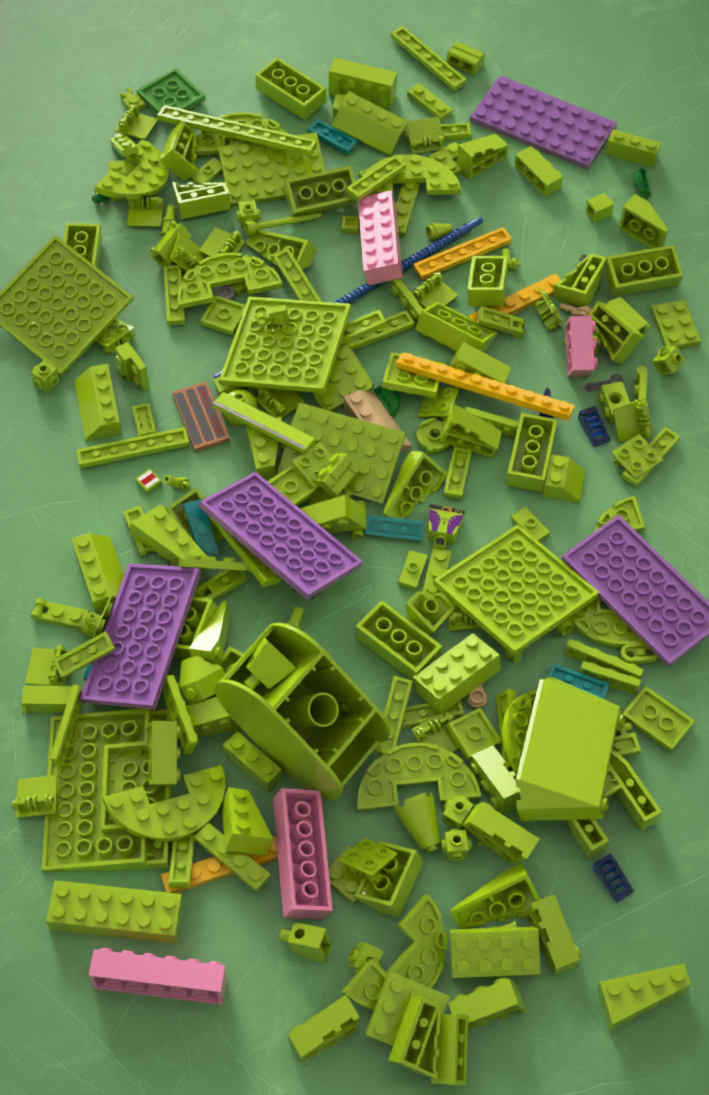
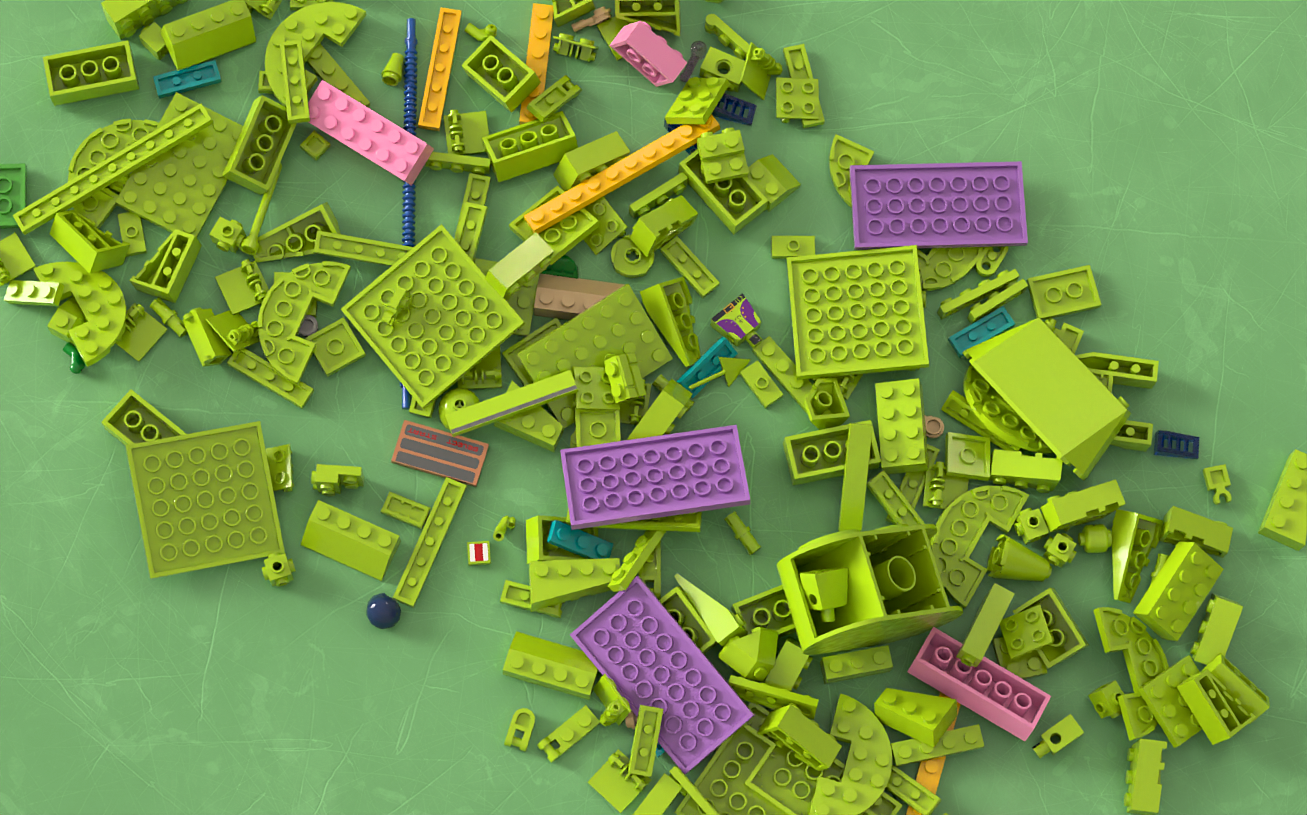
camera: 60 degrees left, 15 degrees up
(47, 581) = (522, 721): none -> lime plate
(61, 450) = (383, 611): none -> dark blue hair
(348, 823) = (984, 625): none -> lime slope
(360, 362) = (520, 266): none -> lime wedge
(393, 660) = (855, 477): none -> lime tile
(405, 544) = (730, 369): none -> lime piece
(486, 865) = (1095, 538): none -> lime head
(549, 430) = (722, 155): none -> lime plate
(575, 396) = (697, 100): none -> lime plate
(610, 926) = (1217, 480): none -> lime plate

